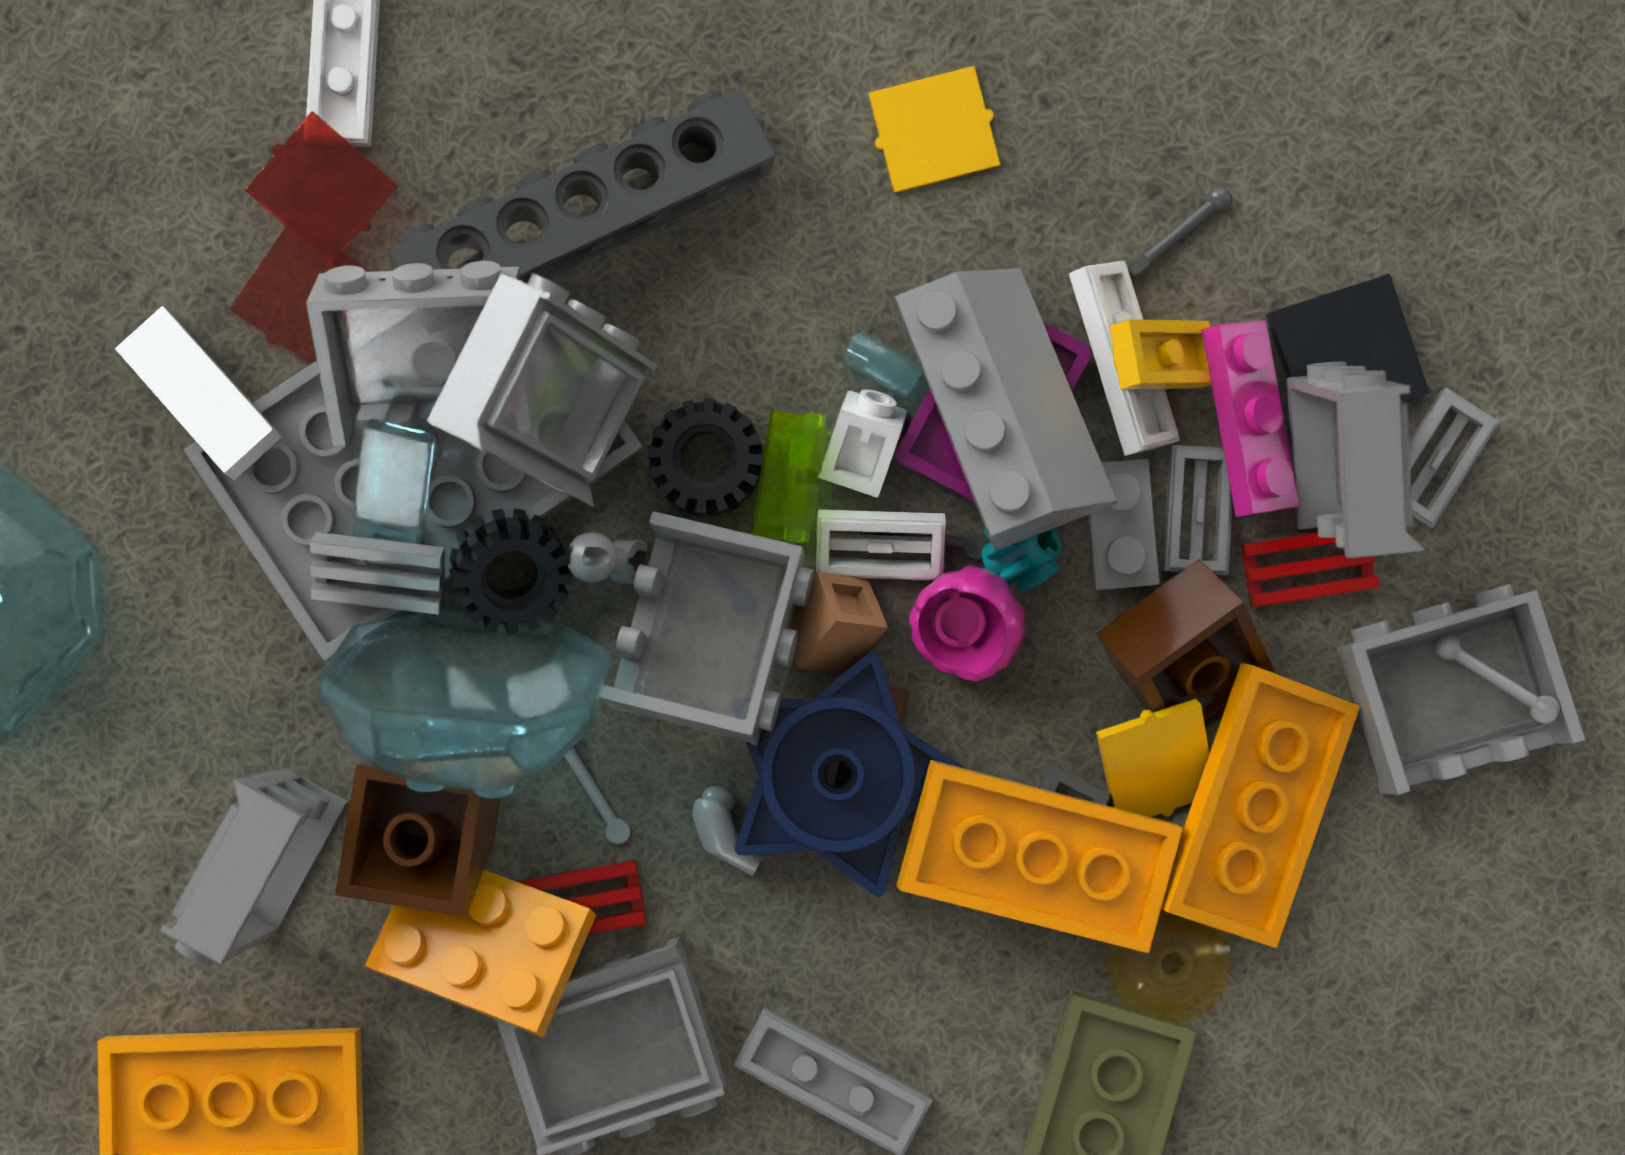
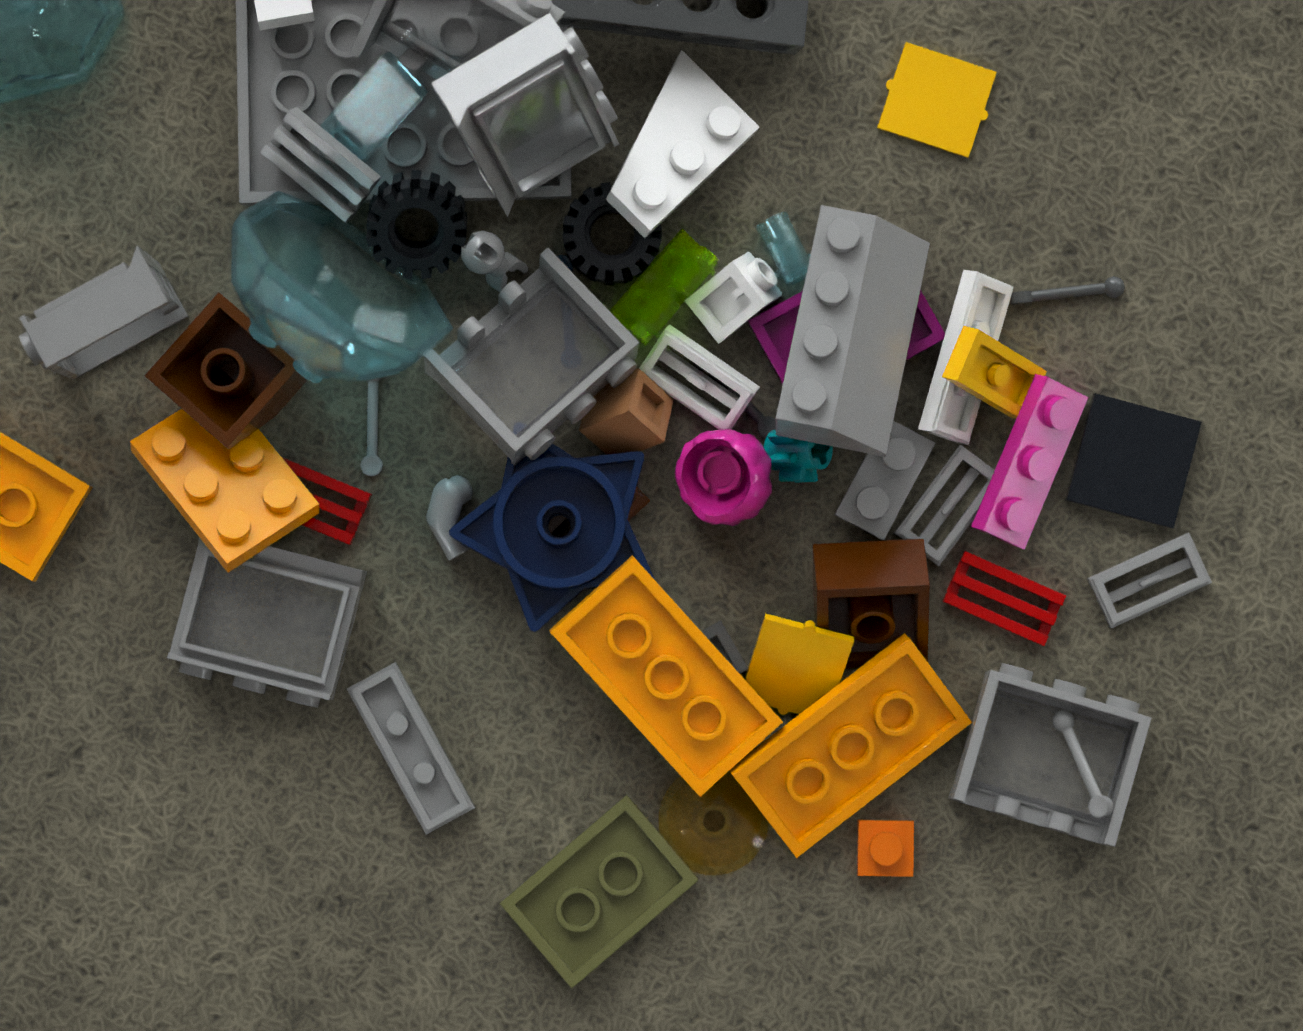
camera: 30 degrees right, 0 degrees up
(717, 332) = (679, 147): none -> white wing
(1352, 458) = (1071, 531): light grey window -> none
(1353, 880) = (885, 848): none -> orange plate

